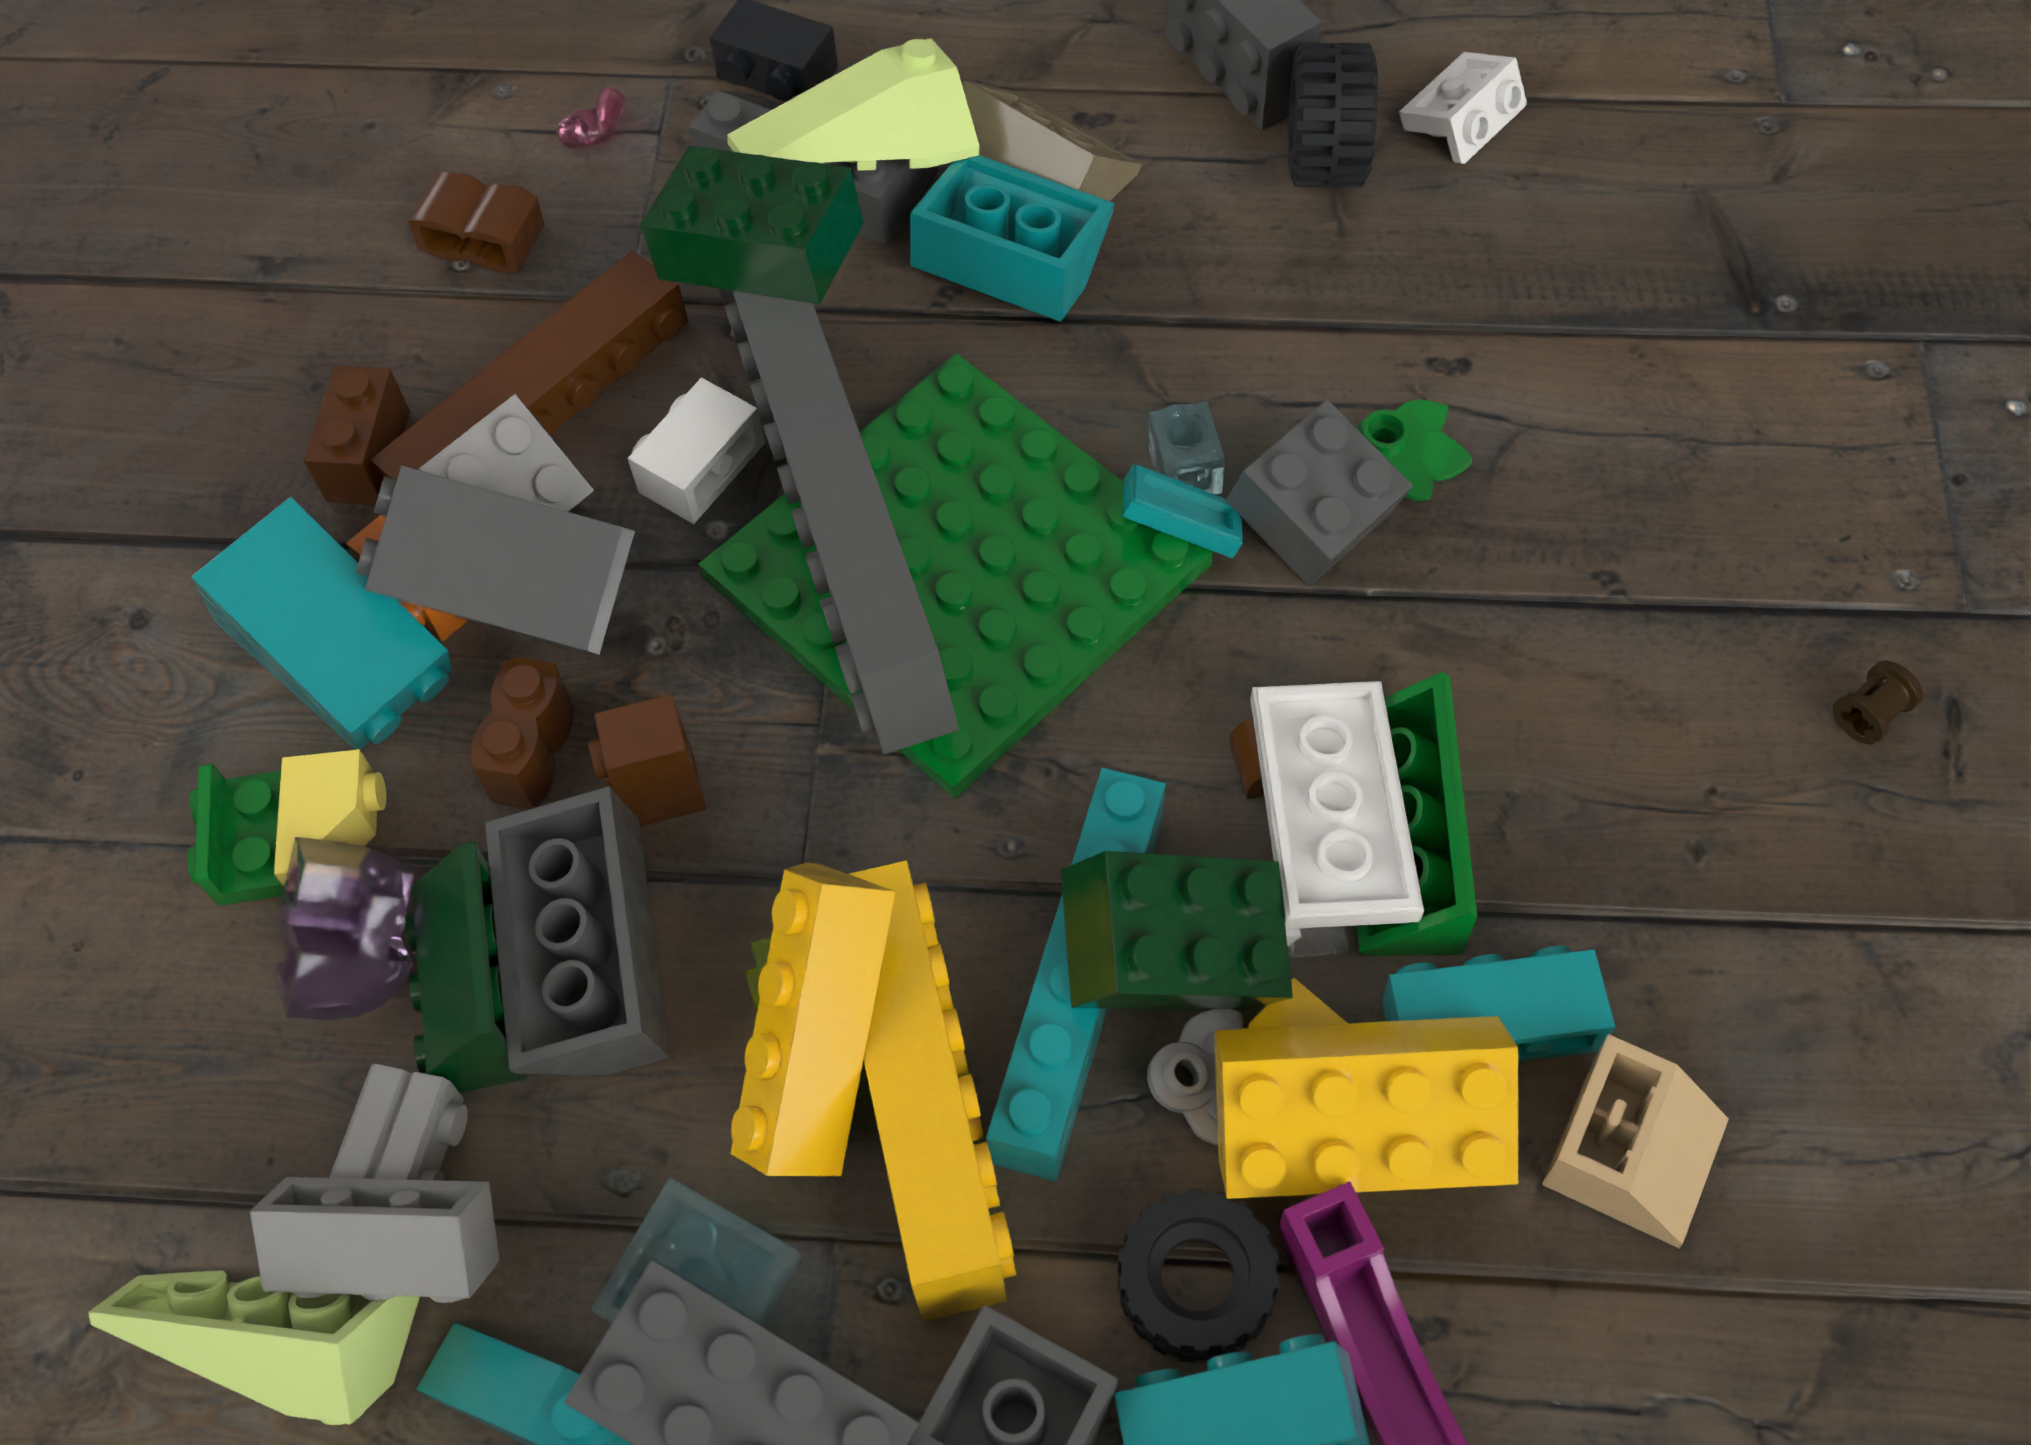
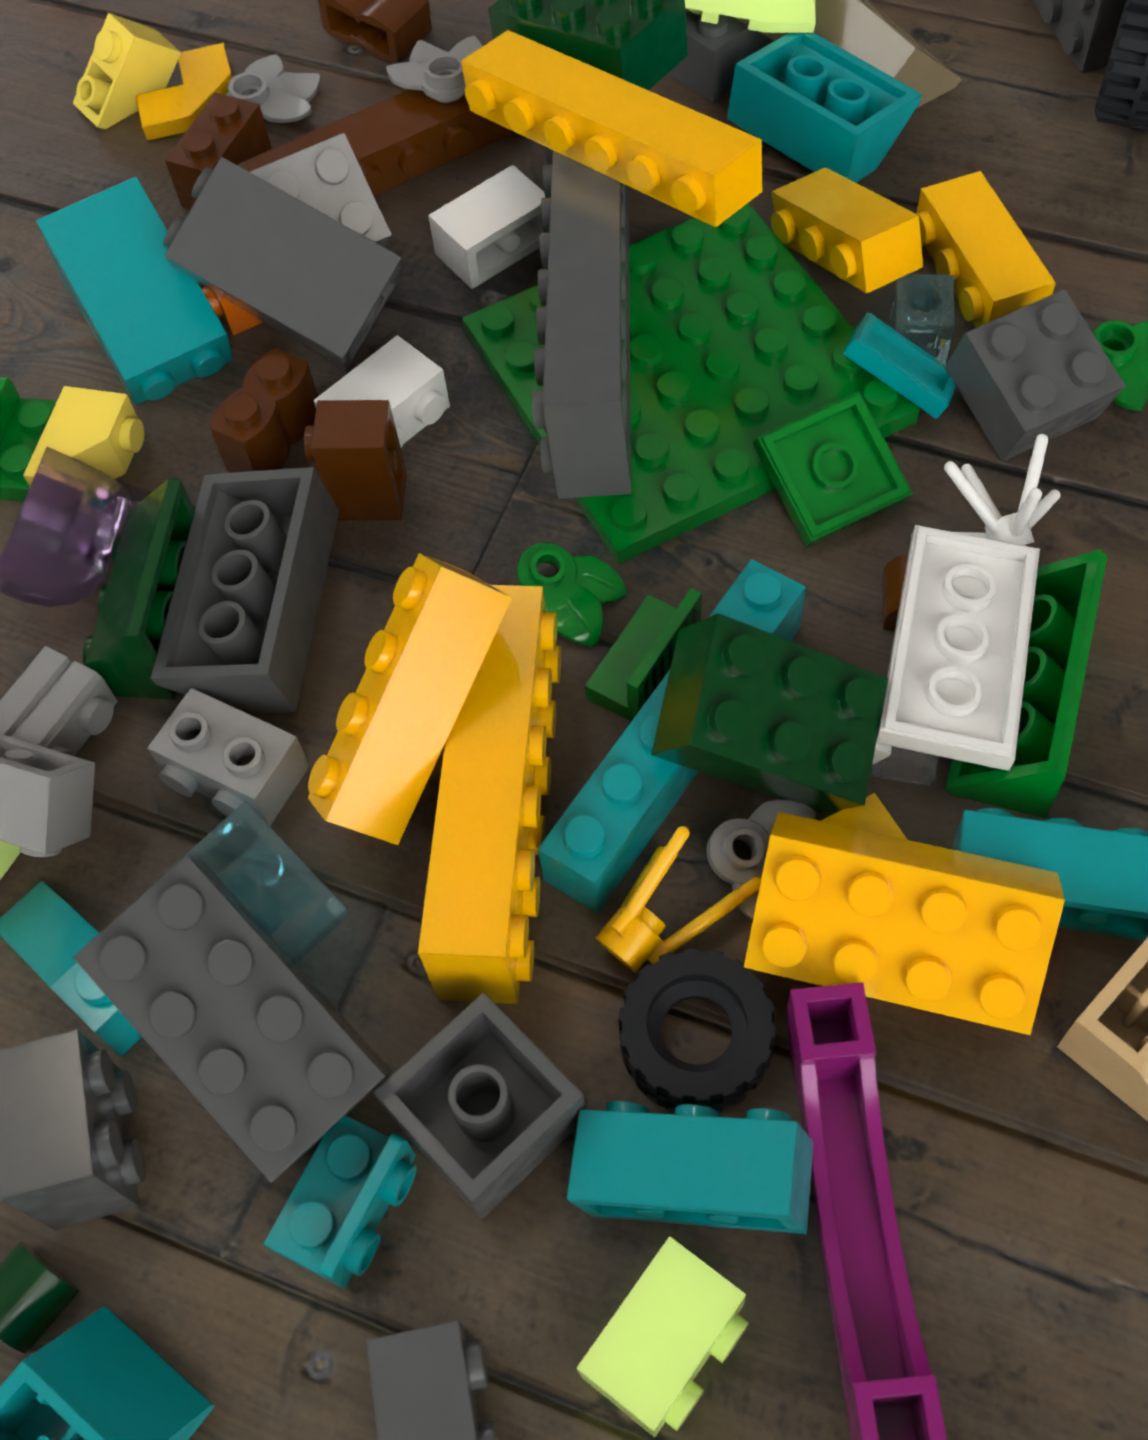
camera: 20 degrees right, 0 degrees up
(205, 356) = (124, 63): none -> light yellow slope
(286, 379) = (175, 108): none -> yellow tile
(388, 338) = (281, 94): none -> light grey plate
(583, 286) = (435, 70): none -> light grey plate
(616, 1130) = (228, 756): none -> light grey brick
(646, 663) = (404, 378): none -> white brick
(818, 334) = (615, 127): none -> yellow brick
(925, 840) = (574, 591): none -> green plate
(1018, 895) = (641, 655): none -> green panel
(1082, 374) = (847, 229): none -> yellow brick
(1102, 1191) = (635, 930): none -> yellow plant
(1146, 641) = (832, 468): none -> green tile
(1227, 364) = (982, 247): none -> yellow brick
(1336, 666) = (1016, 526): none -> white plant

